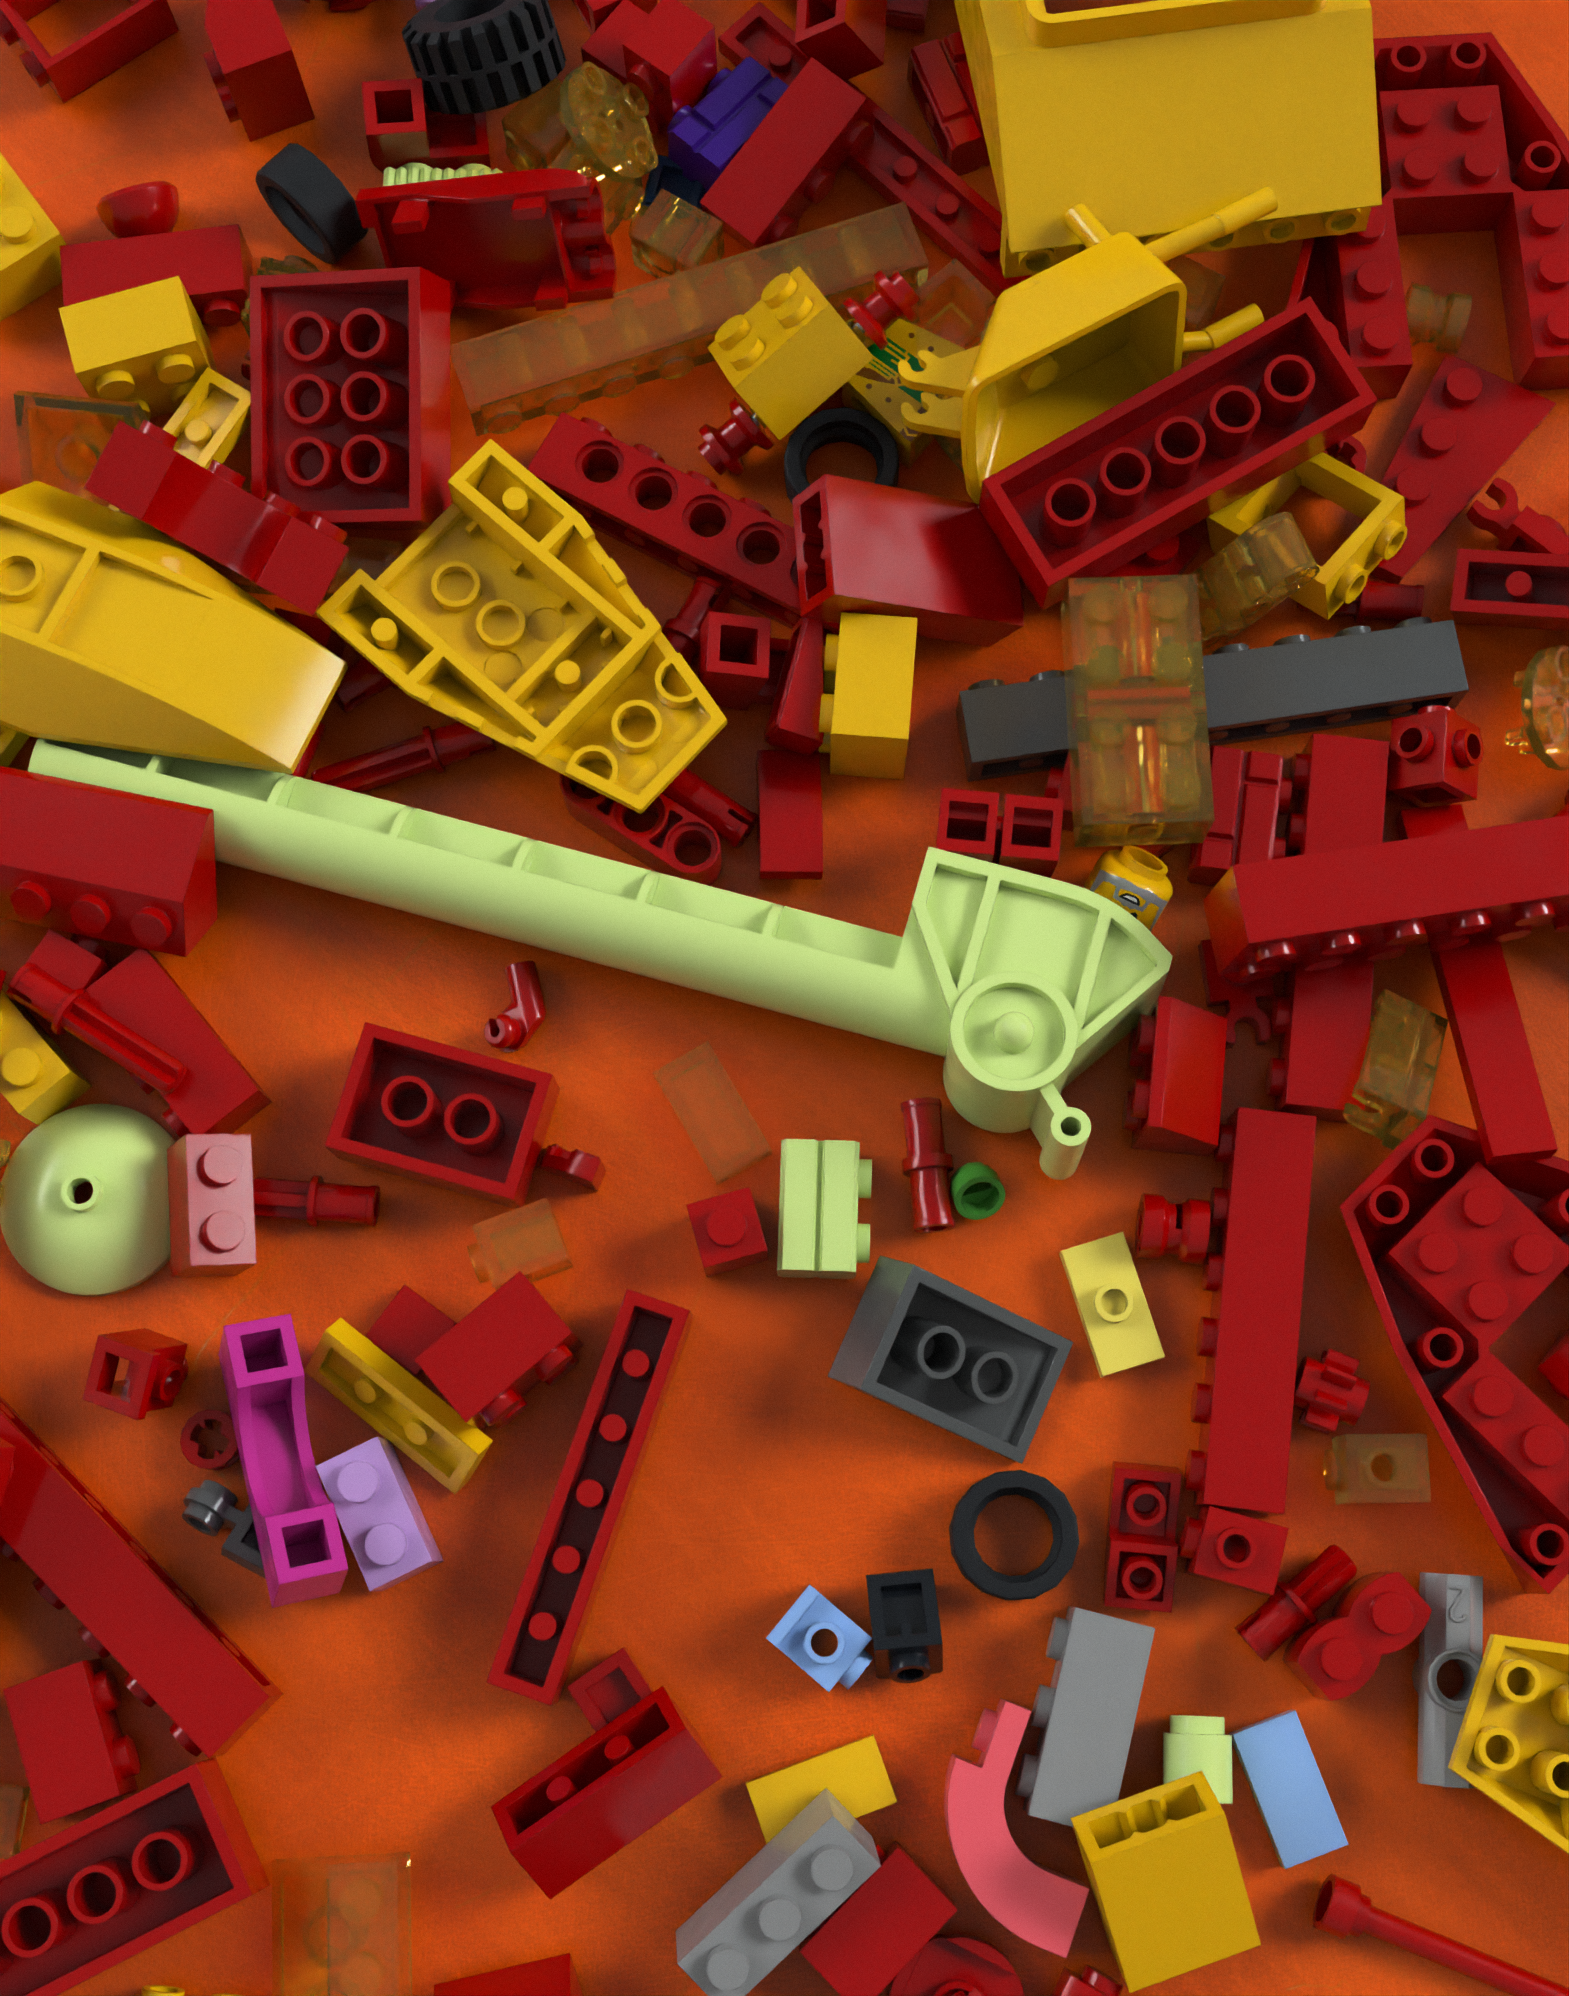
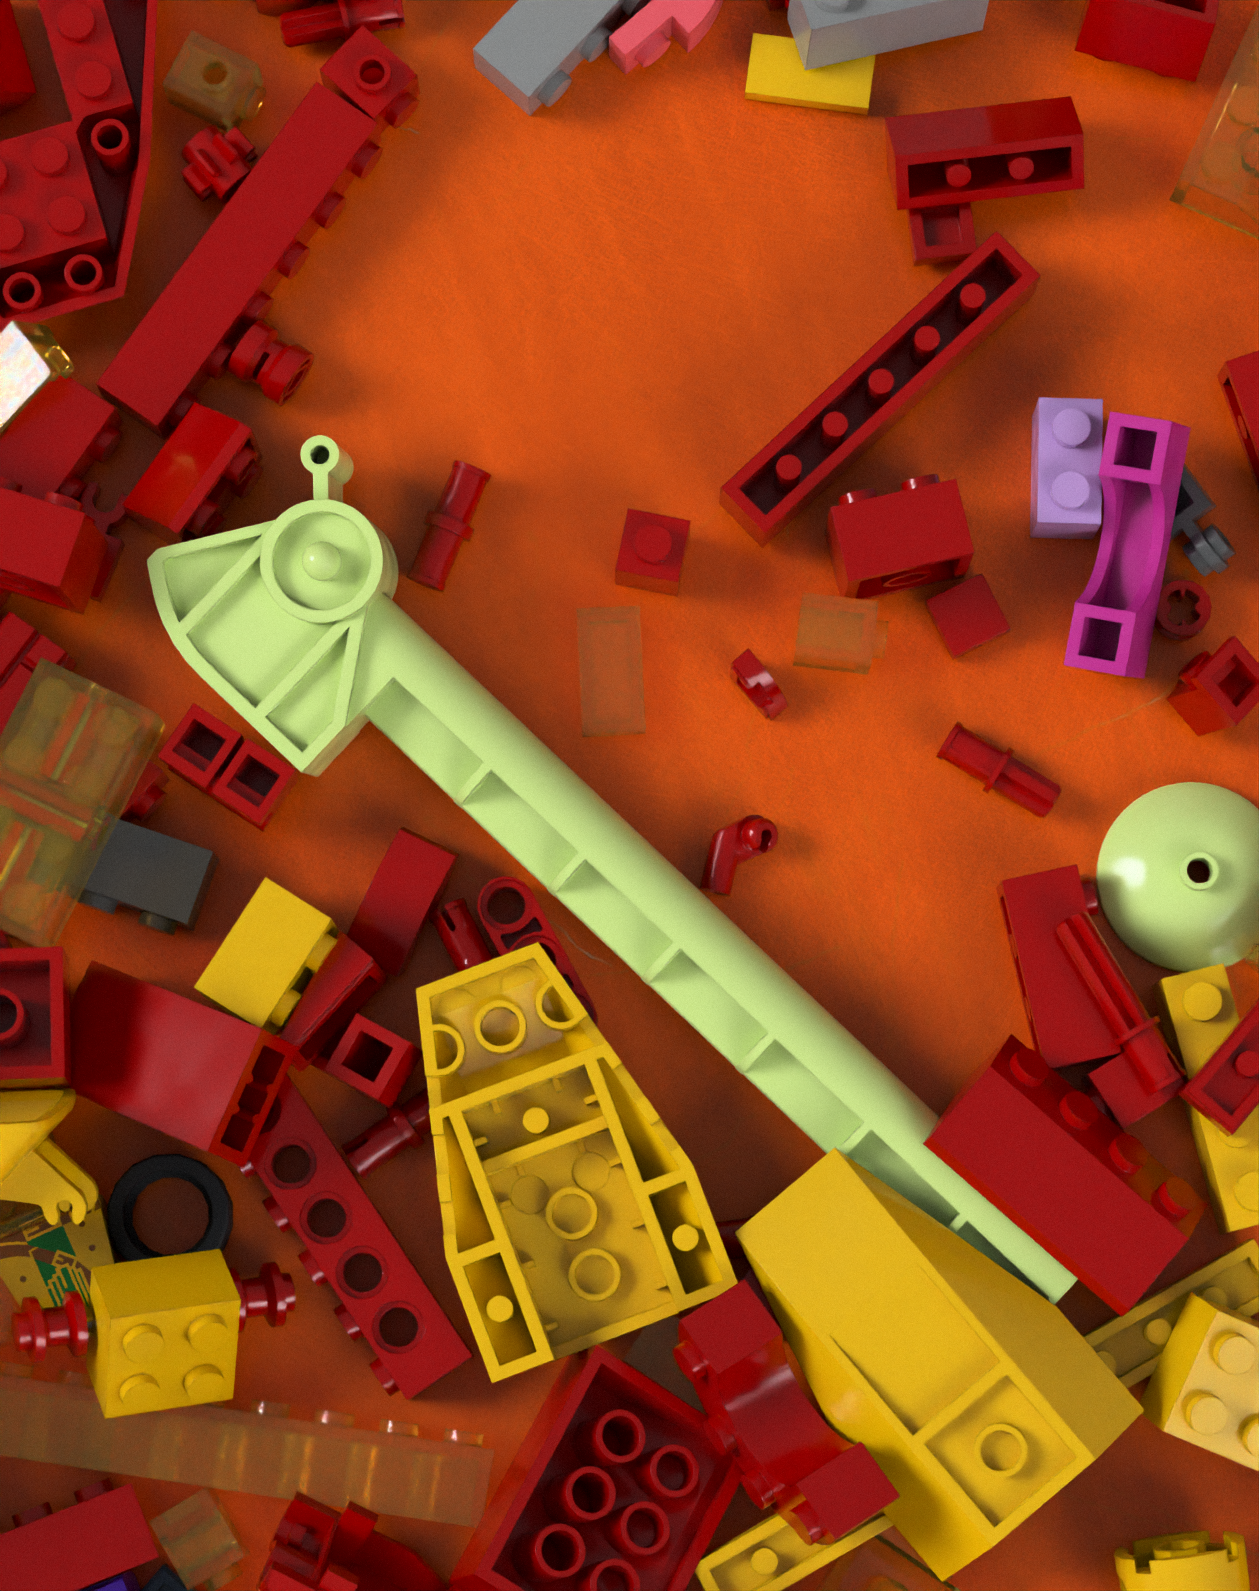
camera: 155 degrees left, 5 degrees up
(211, 1205) = (1091, 802): brick -> none
(397, 1405) = (1010, 555): yellow plate -> none
(406, 758) = (742, 1144): red axle -> none
(443, 1116) = (849, 775): red brick -> none
(794, 1637) = (753, 206): light blue brick -> none
(820, 1209) = (561, 533): yellowish green brick -> none
(905, 1625) = (672, 163): black bracket -> none
(950, 1358) = (521, 354): dark grey slope -> none
(976, 1191) = (418, 483): bright green hinge -> none
(1063, 1528) = (545, 139): black tyre -> none
(1111, 1304) = (356, 332): light yellow plate -> none
(1132, 881) = (142, 665): yellow head -> none
(1142, 1537) = (439, 135): red slope -> none

